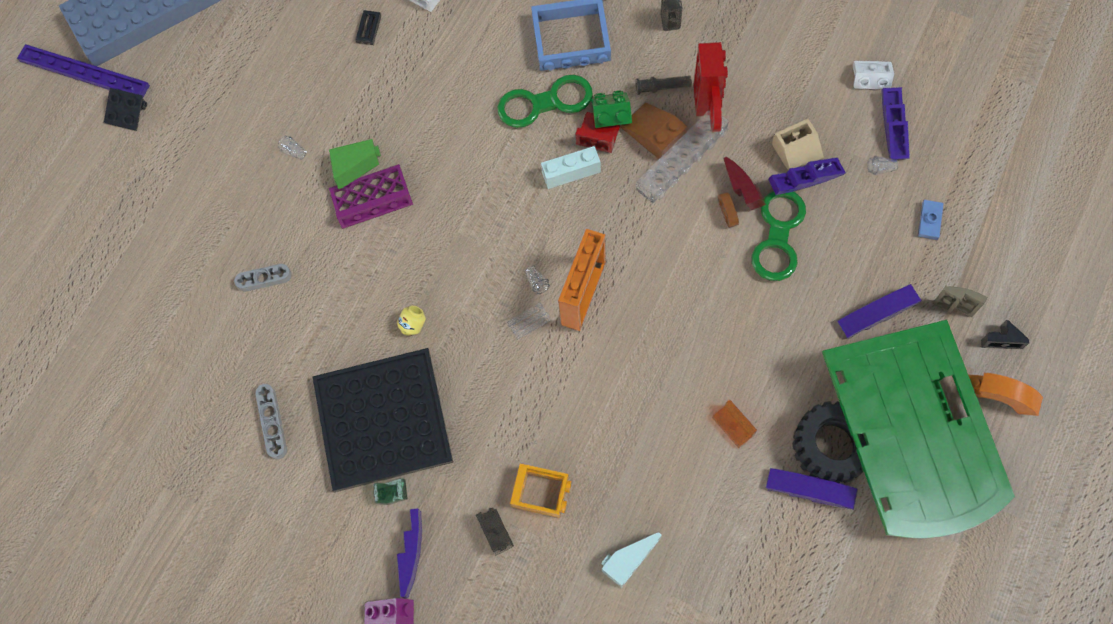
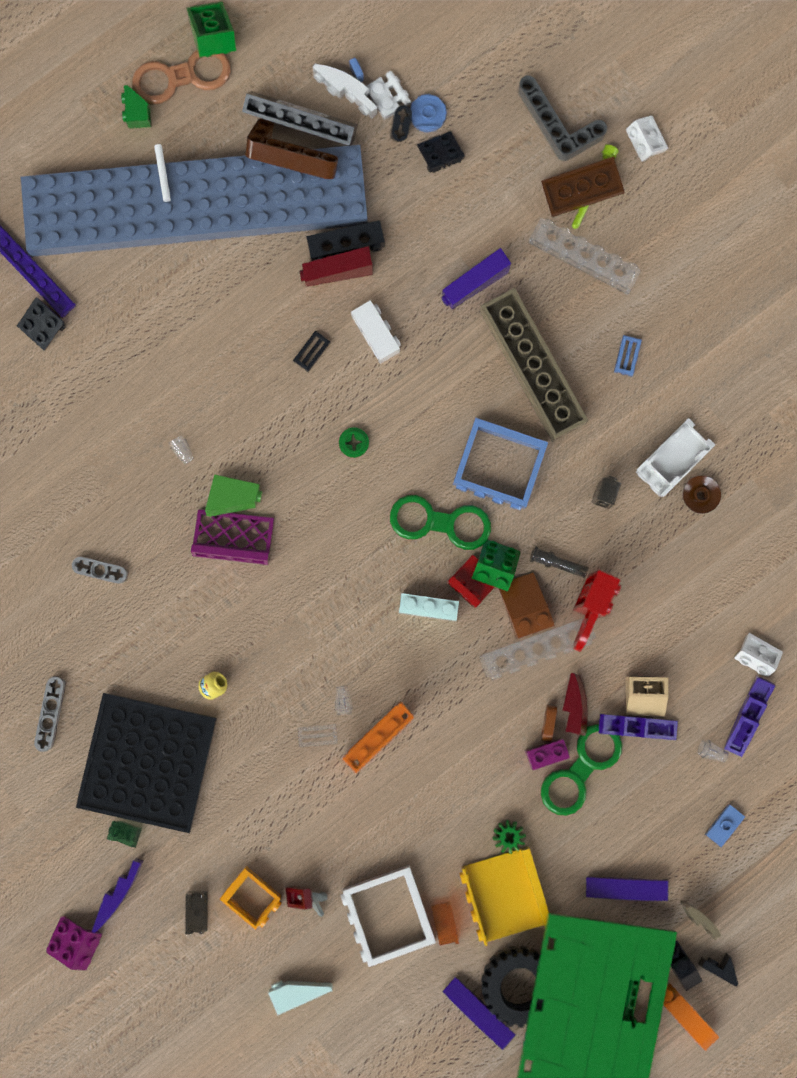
camera: 15 degrees right, 15 degrees up
(441, 69) = (360, 436): none -> green gear
(588, 462) = (305, 899): none -> dark red piece
(696, 416) = (354, 919): none -> white window
(740, 316) = (516, 836): none -> green gear
(741, 234) = (547, 754): none -> magenta brick
(775, 372) = (505, 895): none -> yellow panel
(975, 353) = (684, 968): none -> black slope

